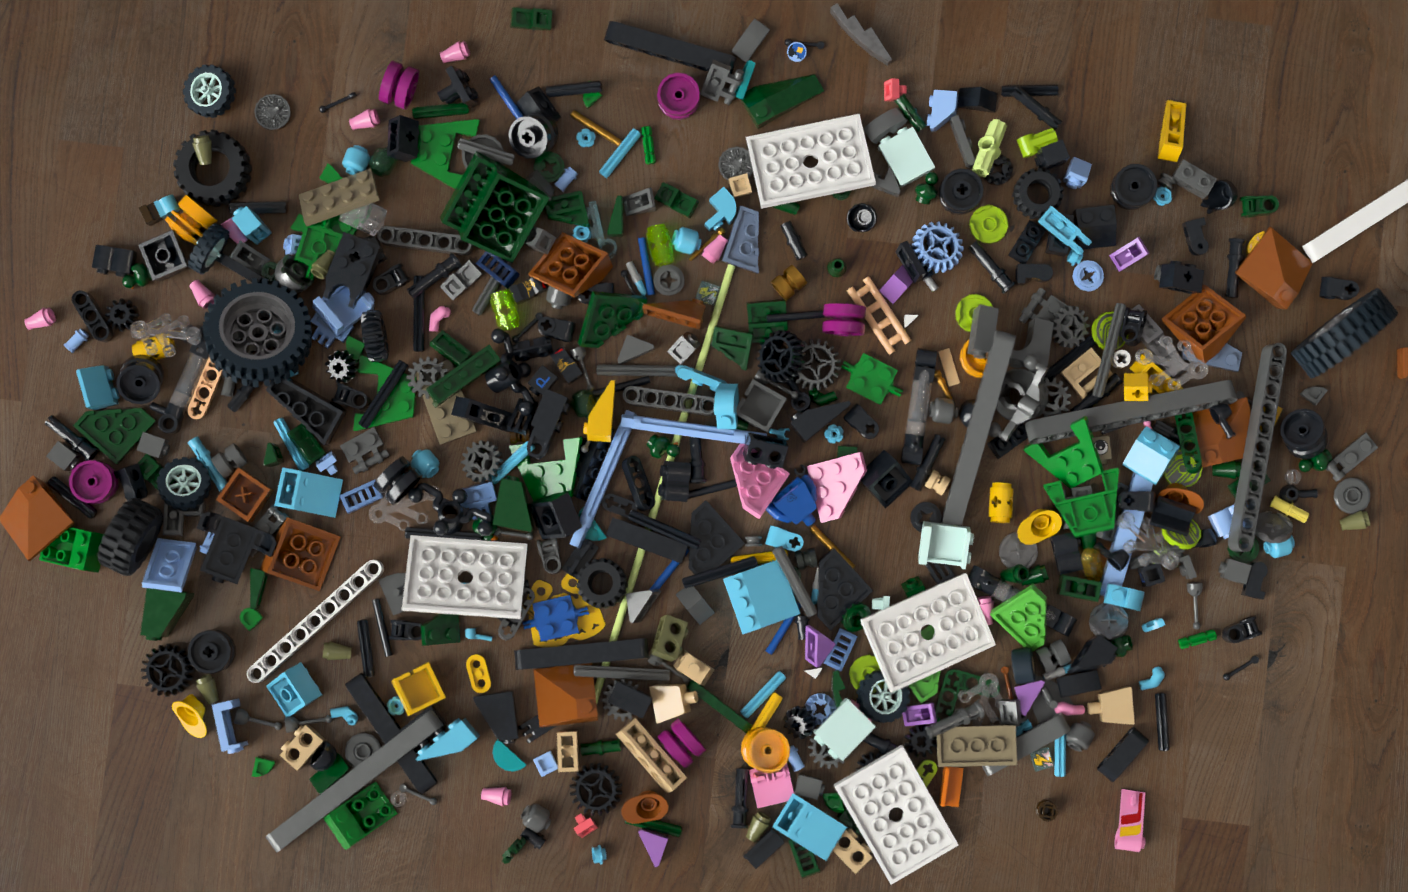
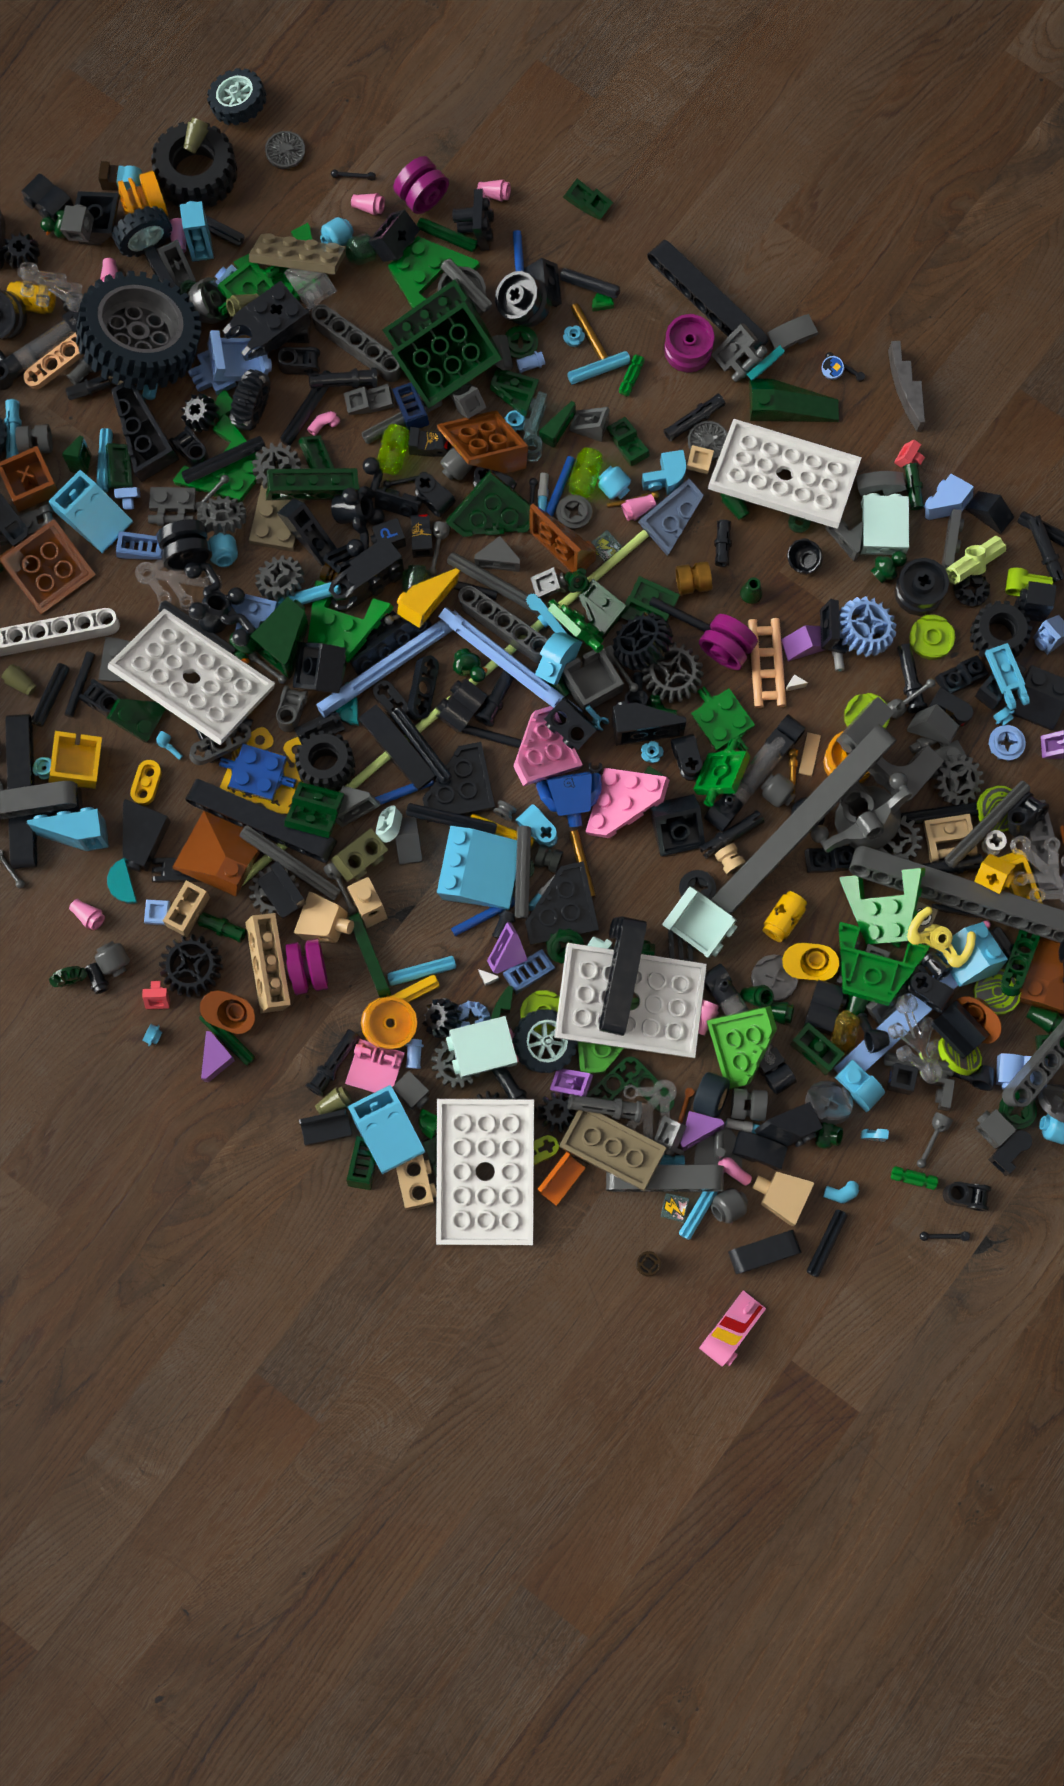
camera: 30 degrees right, 10 degrees down
(156, 273) = (77, 223): none -> dark grey brick
(385, 438) = (224, 479): none -> dark grey hinge
(408, 438) = (219, 515): none -> dark grey gear
(617, 625) = (314, 809): none -> dark green slope
(676, 602) = (389, 824): none -> light aqua beam
(704, 335) = (581, 584): none -> dark green plate
(715, 152) = (701, 413): none -> black pin
(725, 372) = (576, 625): none -> green plate
(896, 423) = (722, 772): none -> green plate
(913, 616) = (623, 973): none -> black beam
(994, 295) = (899, 706): none -> dark grey hinge
(1029, 295) = (934, 724): none -> dark grey slope
(1123, 459) = (940, 939): none -> light yellow piece
(1128, 474) = (939, 973): none -> black bush

